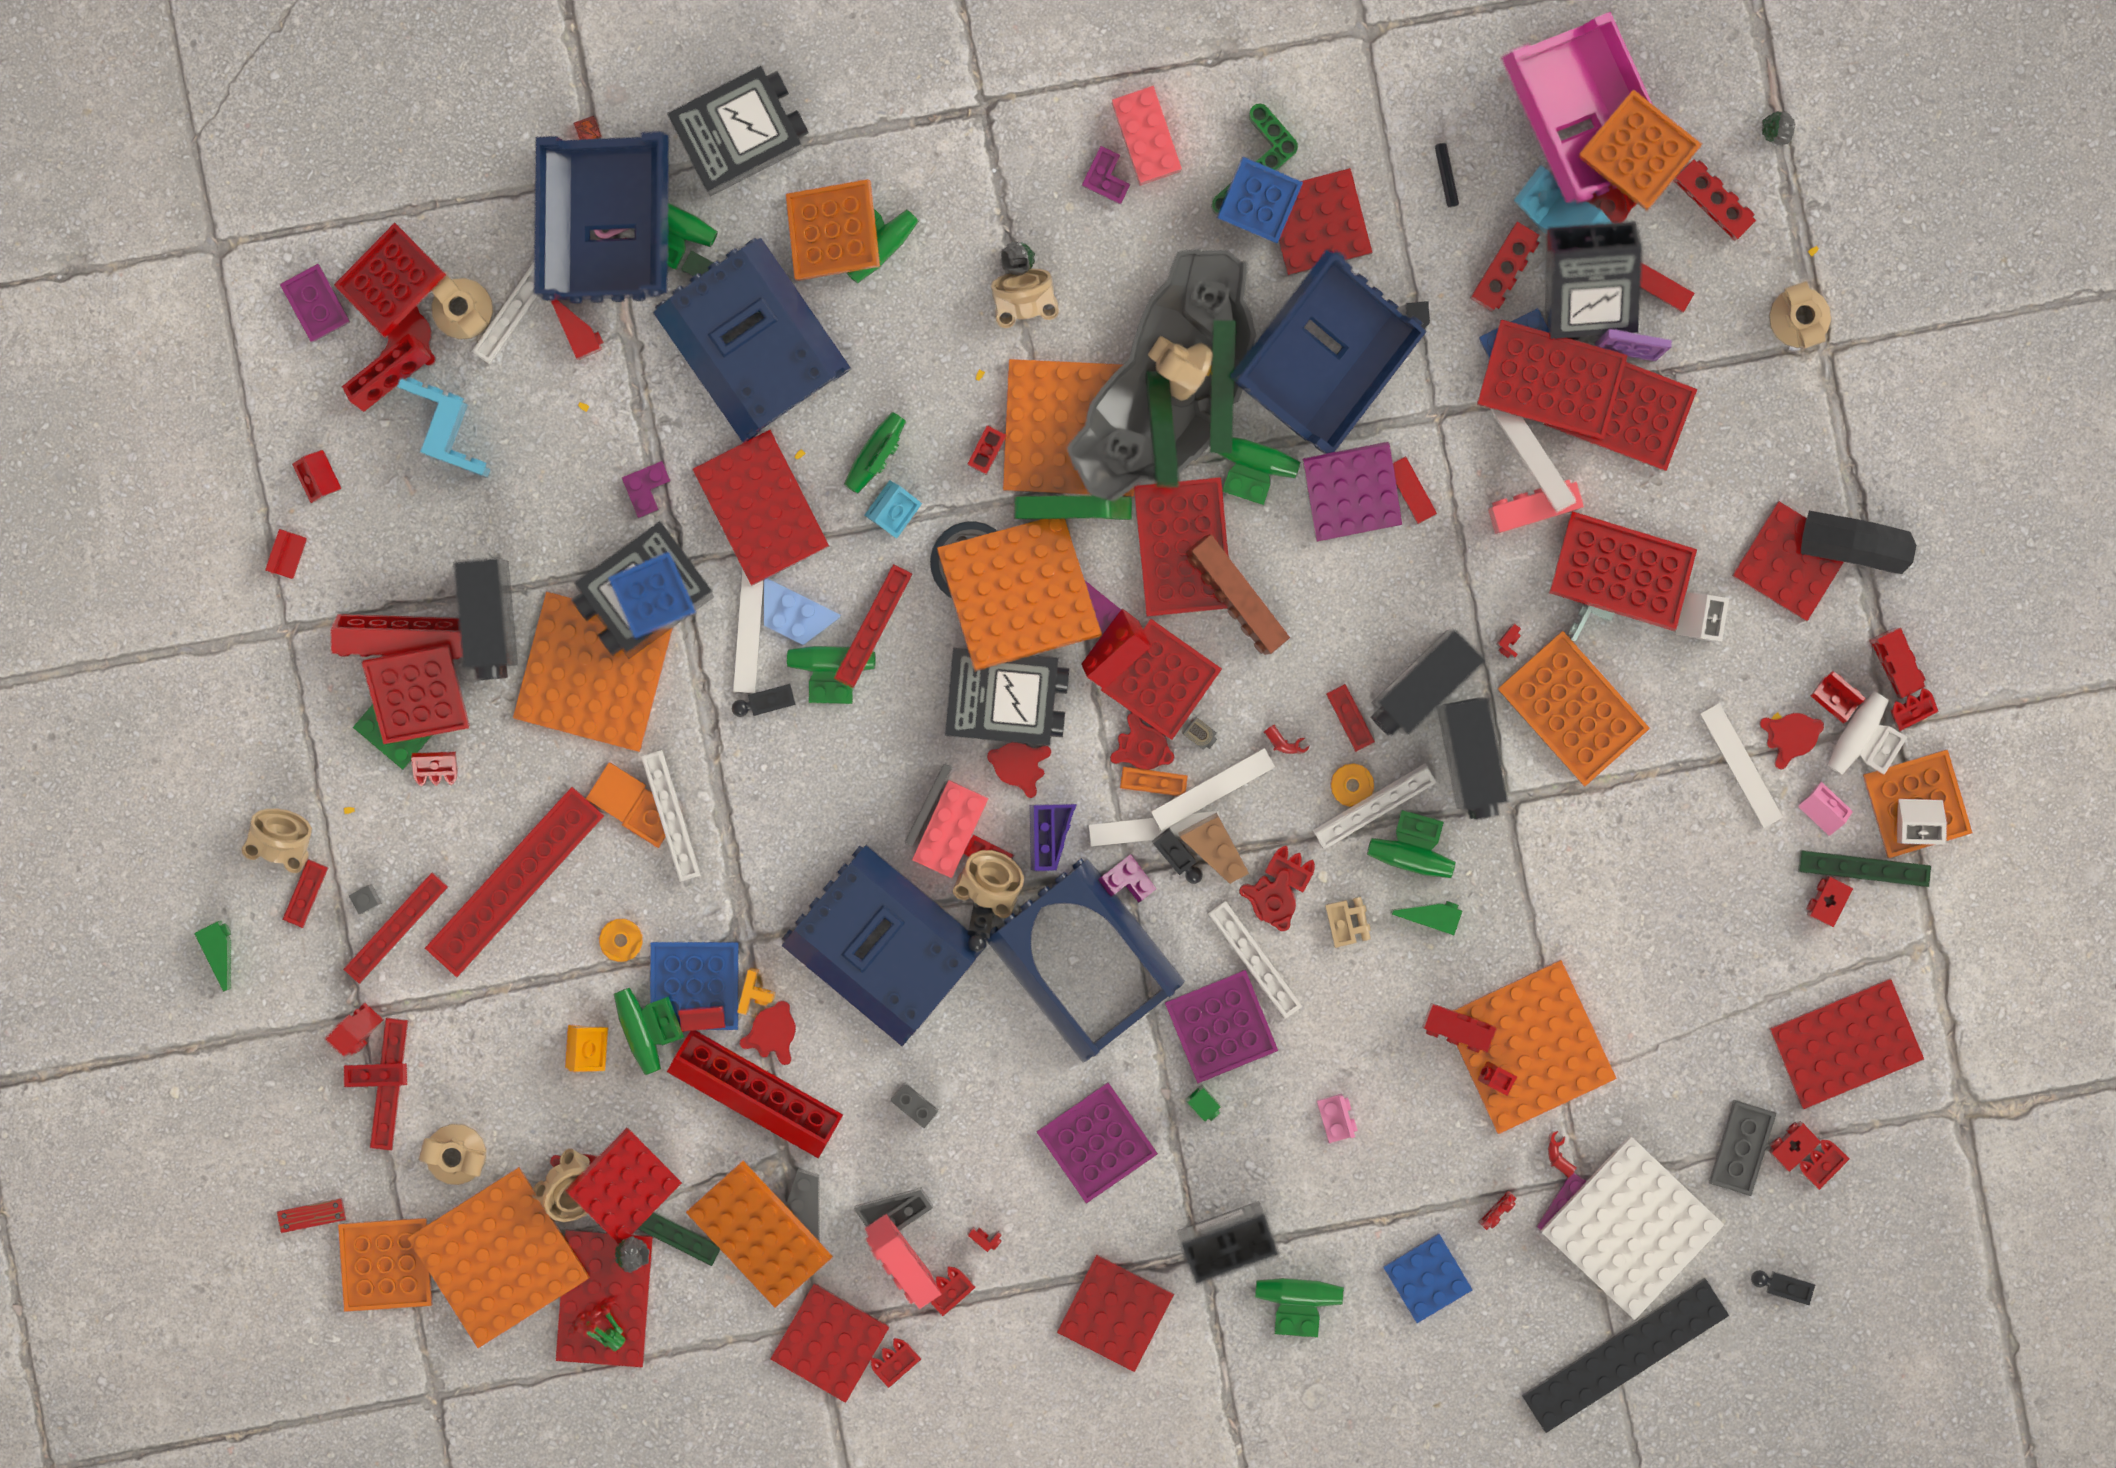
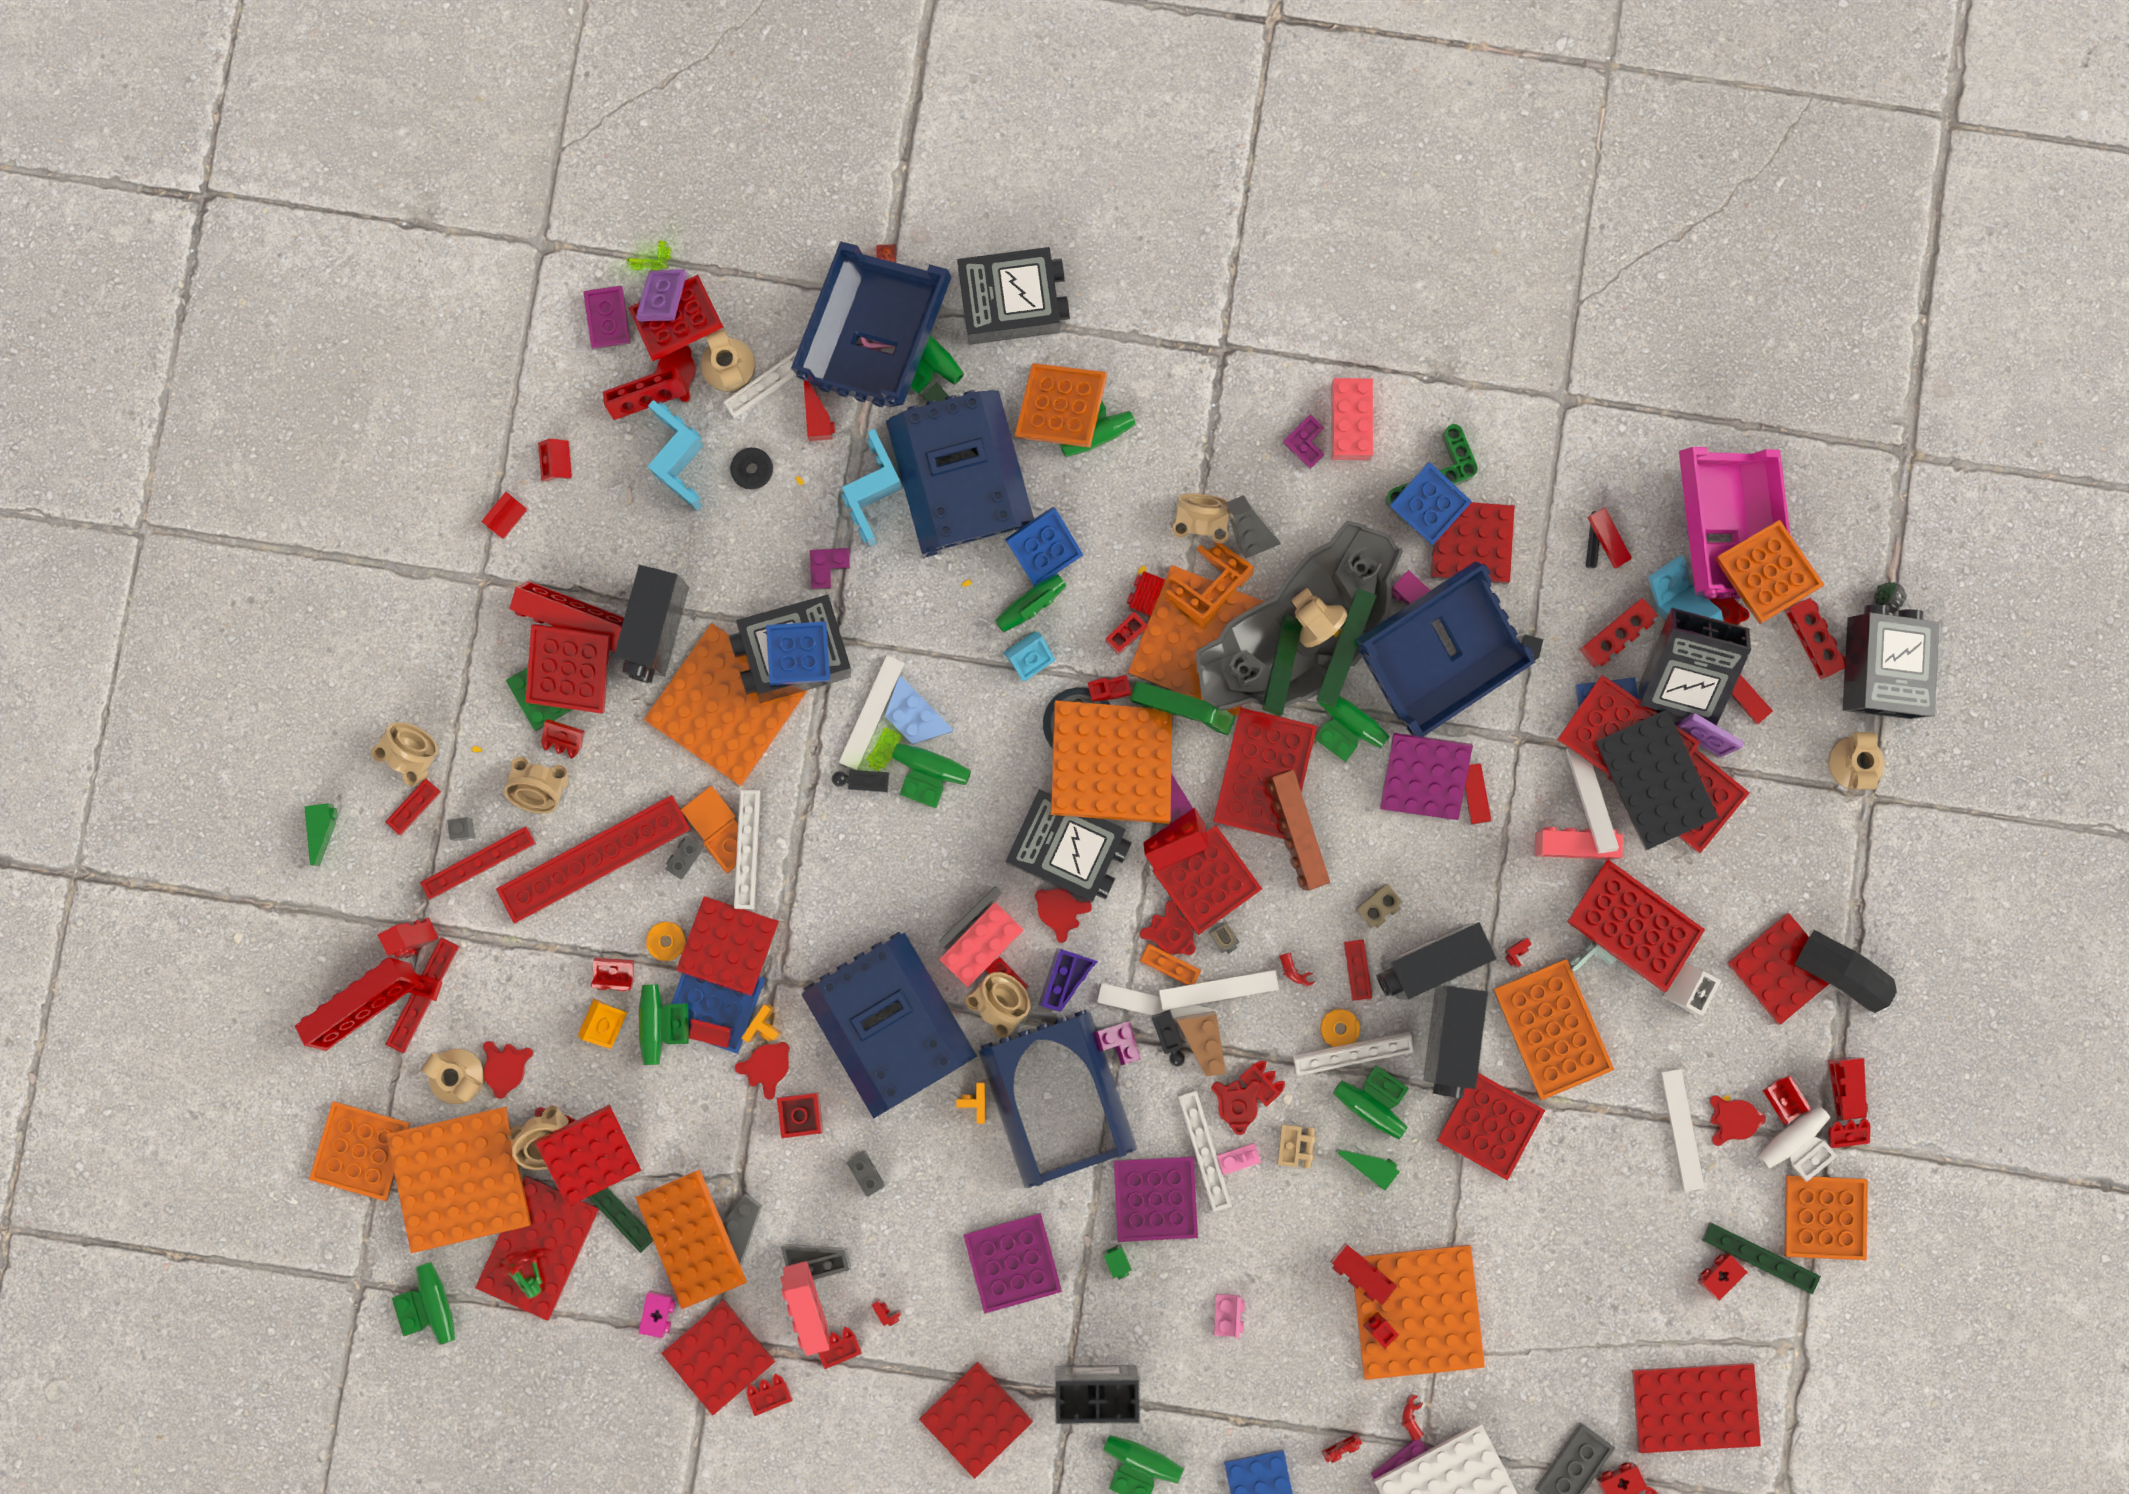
camera: 20 degrees right, 5 degrees down
(311, 1215) = (313, 1085): red tile -> none
(328, 1116) = (357, 1004): none -> red brick
(351, 213) = (660, 263): none -> clear neon green bracket
(365, 260) = (661, 295): none -> medium lavender tile
(426, 827) = (535, 786): none -> tan piece
(502, 1129) = (504, 1068): none -> red tile
(512, 1396) = (426, 1307): none -> green plate
(542, 411) = (746, 457): none -> black wheel
(578, 993) = (613, 974): none -> red bracket
(610, 846) = (684, 858): none -> dark grey bracket
(631, 1254) = (574, 1217): dark grey piece -> none
(663, 390) = (871, 488): none -> medium azure bracket
(687, 923) = (727, 946): none -> red plate
(744, 1311) = (649, 1323): none -> dark pink brick
(755, 1093) = (732, 1114): red slope -> none
(761, 507) = (917, 616): red plate -> none
(775, 661) = (883, 749): none -> clear neon green bracket
(825, 1069) = (800, 1115): none -> red brick
(868, 388) = (1044, 546): none -> blue plate
(873, 626) = (977, 748): red tile -> none
(979, 927) = (977, 1038): black plate -> none
(990, 514) = (1109, 689): none -> red slope
(993, 400) = (1146, 593): none -> red brick
(993, 994) = (968, 1101): none -> light orange bracket
(1017, 258) = (1208, 482): dark grey piece -> none
(1059, 394) = (1203, 607): none -> orange wedge
(1079, 292) = (1249, 528): none -> dark grey wedge
(1269, 298) = (1409, 588): none -> dark pink brick
(1292, 955) = (1238, 1158): none -> bright pink plate
(1345, 641) = (1376, 902): none -> dark tan brick
(1462, 168) = (1609, 537): none -> red tile
(1541, 830) = (1491, 1126): none -> red plate
(1594, 411) = (1656, 780): none -> black plate
(1800, 201) = (1891, 663): none -> brick
(1825, 809) = (1744, 1194): bright pink panel -> none
(1921, 822) = (1826, 1235): white slope -> none

